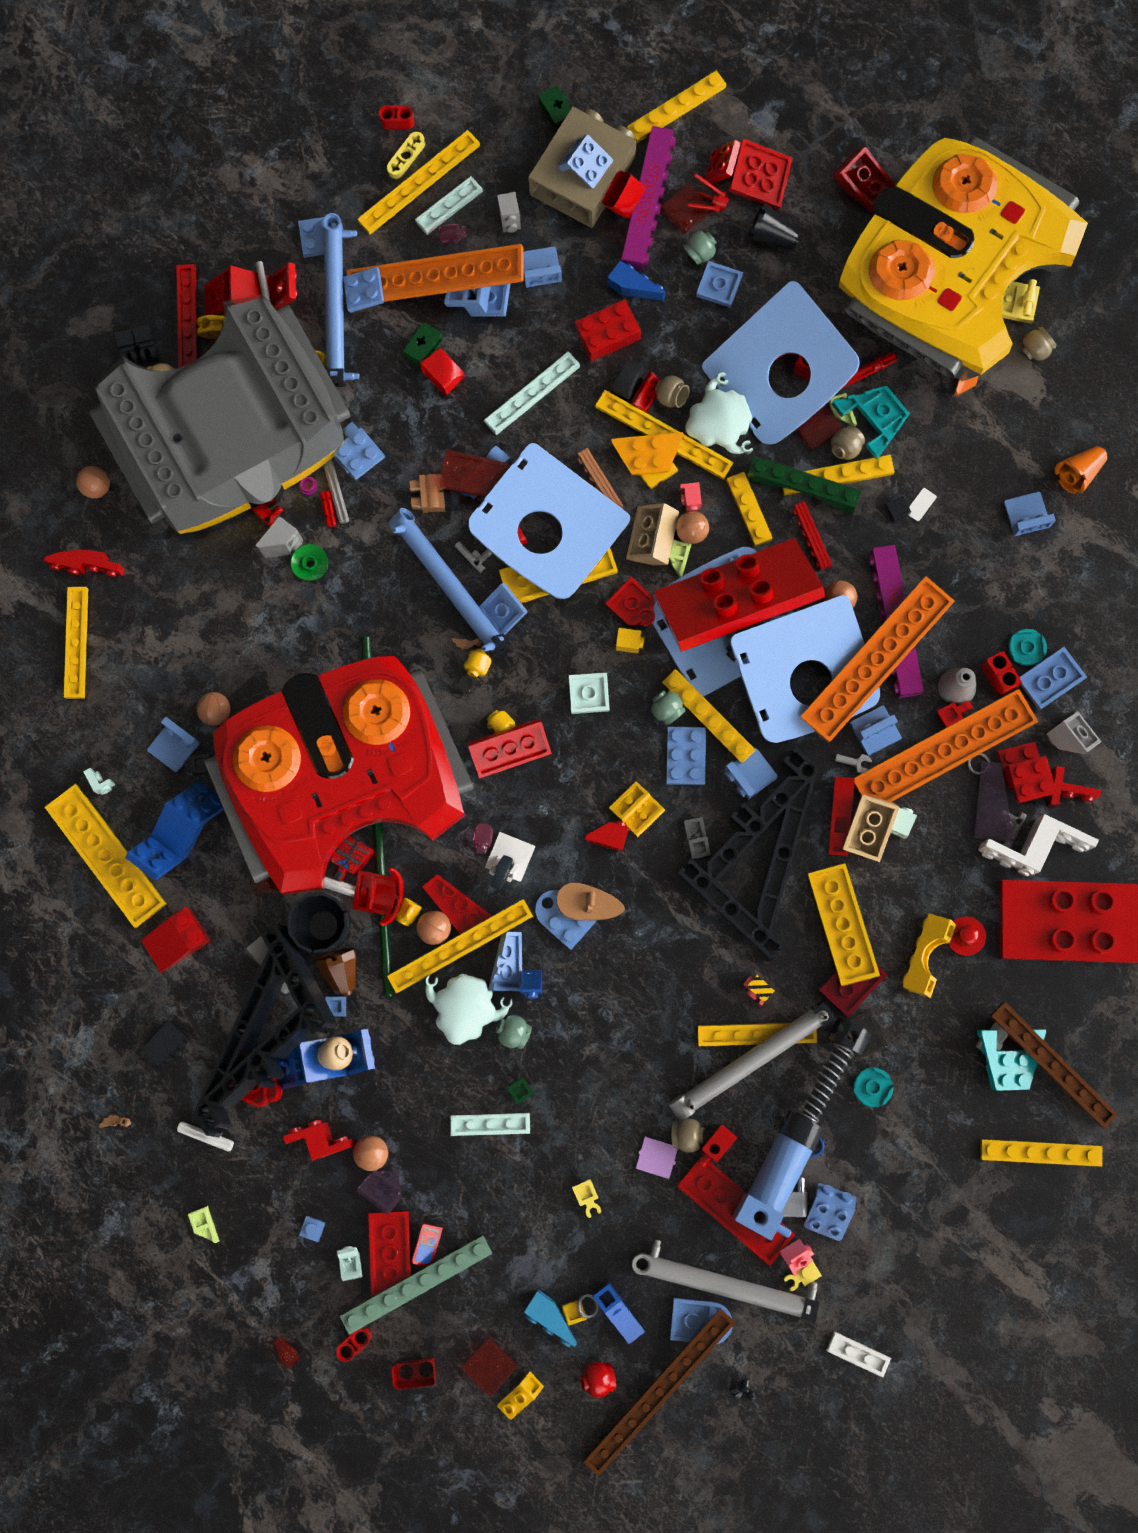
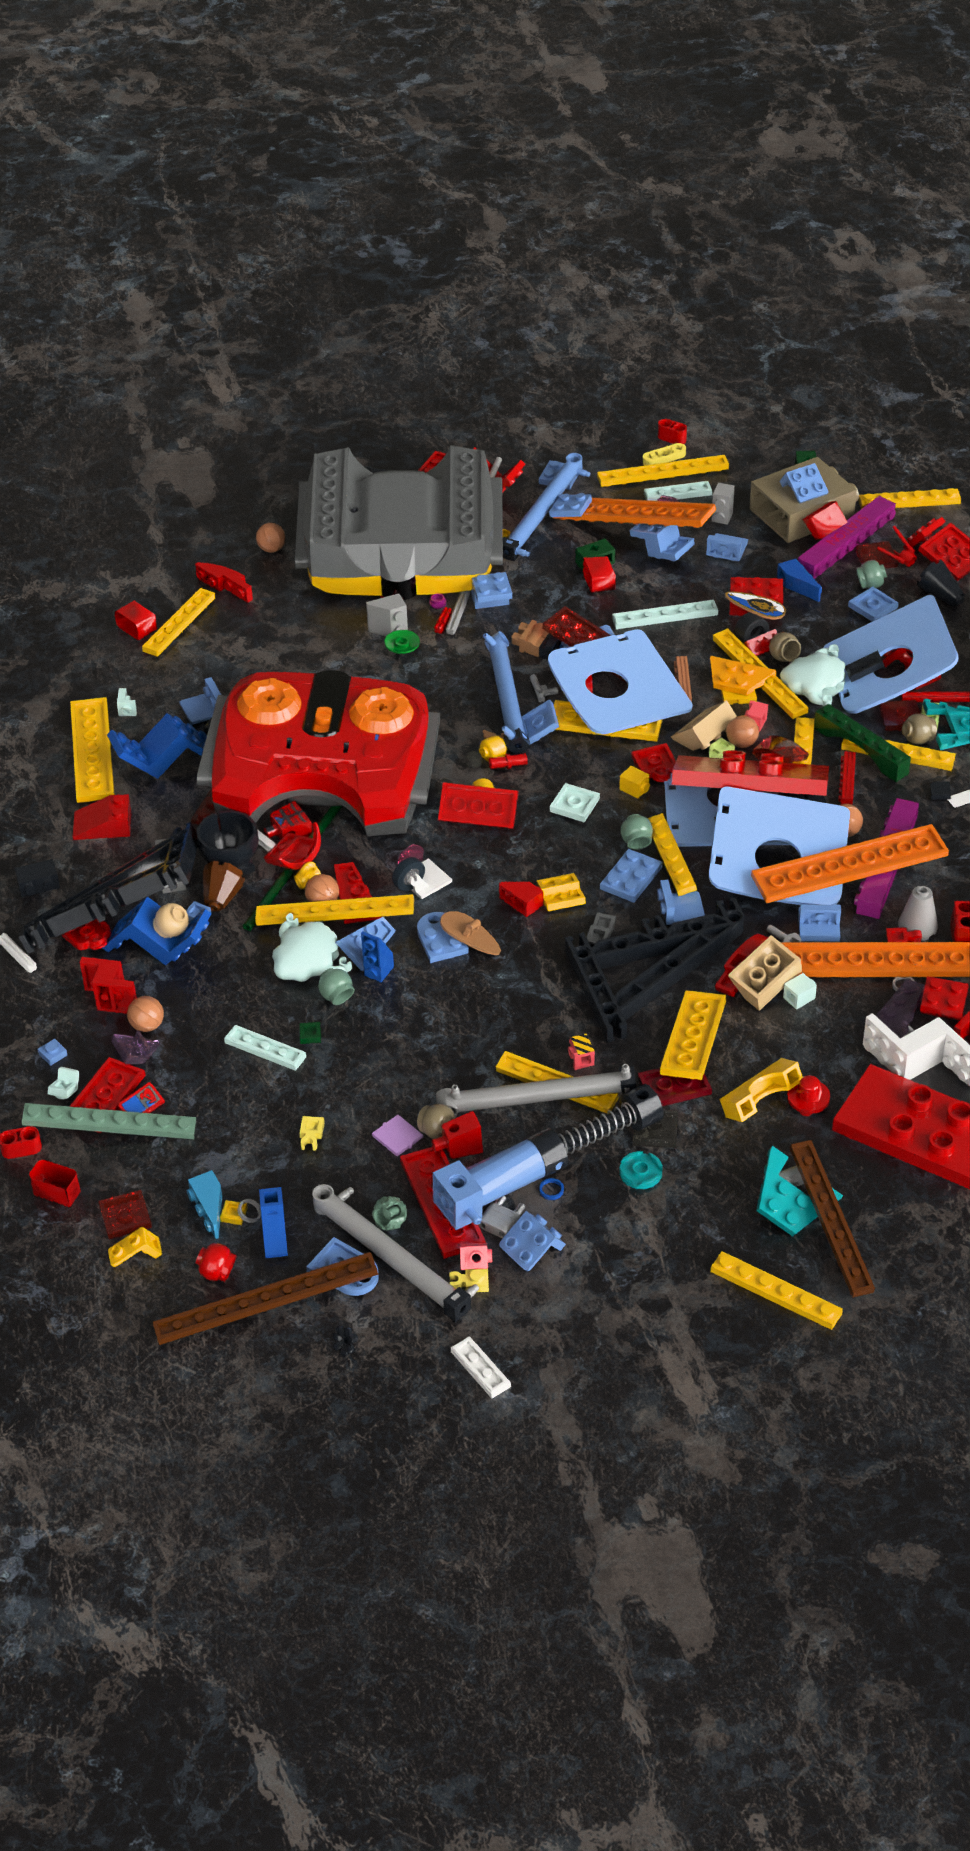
camera: 25 degrees right, 35 degrees down
(33, 663) = (135, 620): none -> red piece
(499, 670) = (508, 761): none -> red pin
(623, 352) = (757, 605): none -> shield
(705, 1251) = (389, 1213): none -> sand green piece
(736, 535) = (780, 745): none -> clear red slope
(764, 390) = (864, 666): none -> black plate

